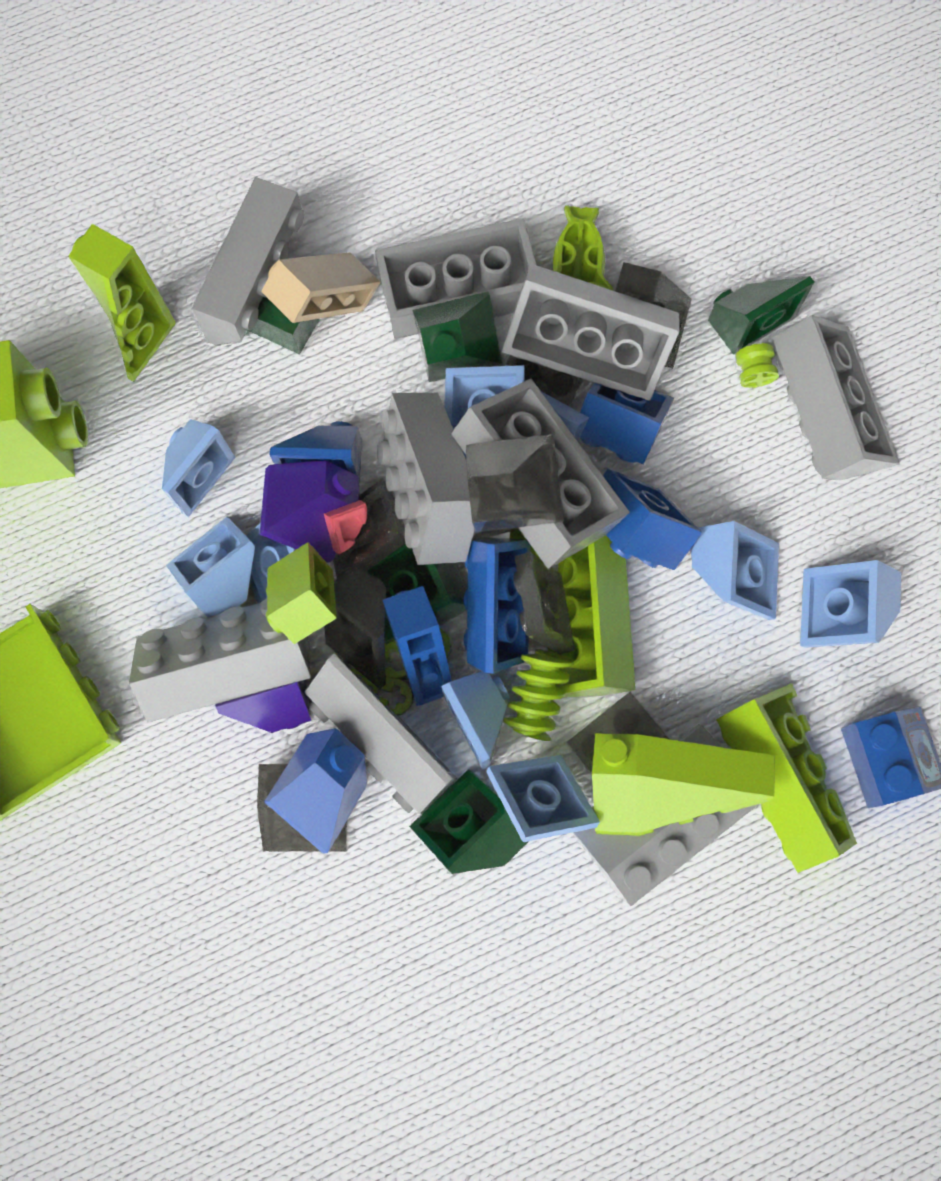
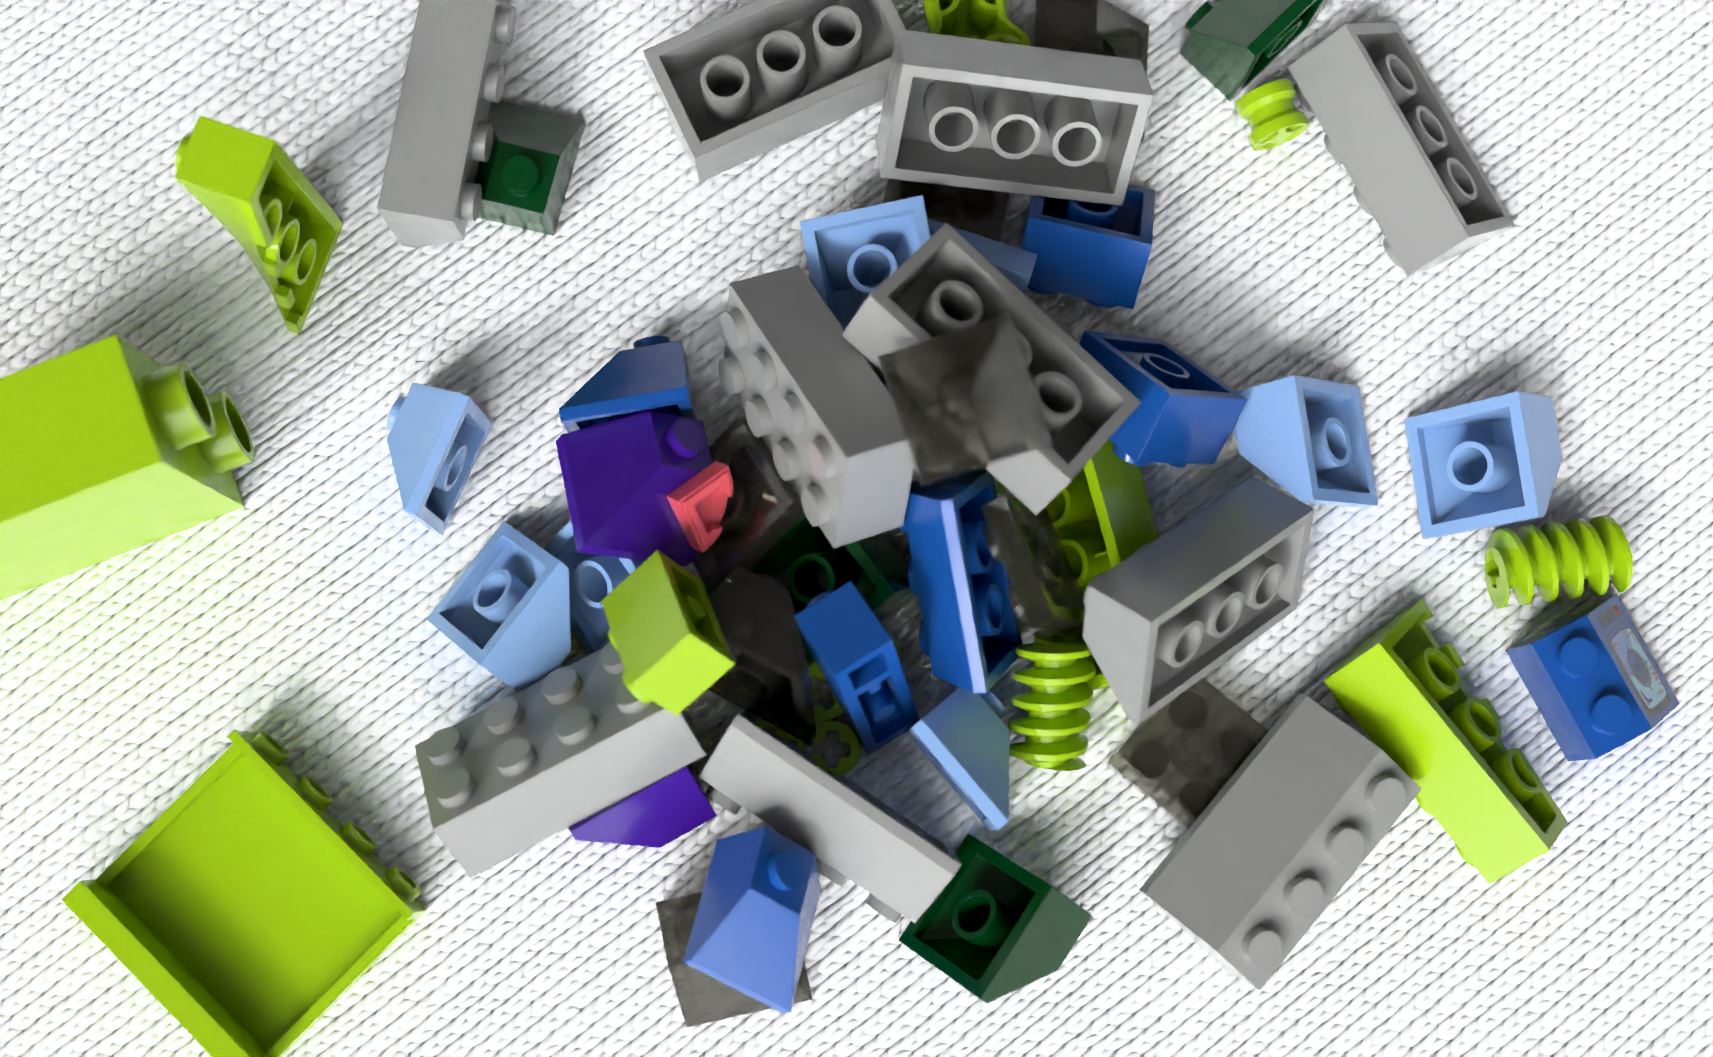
camera: 20 degrees left, 5 degrees up
(319, 286) = (569, 127): tan brick -> none
(457, 335) = (802, 162): dark green slope -> none
(542, 797) = (1098, 861): light blue slope -> none
(642, 645) = (1197, 595): none -> light grey slope
(664, 781) = (1273, 797): lime wedge -> none
(884, 673) = (1557, 556): none -> lime piece

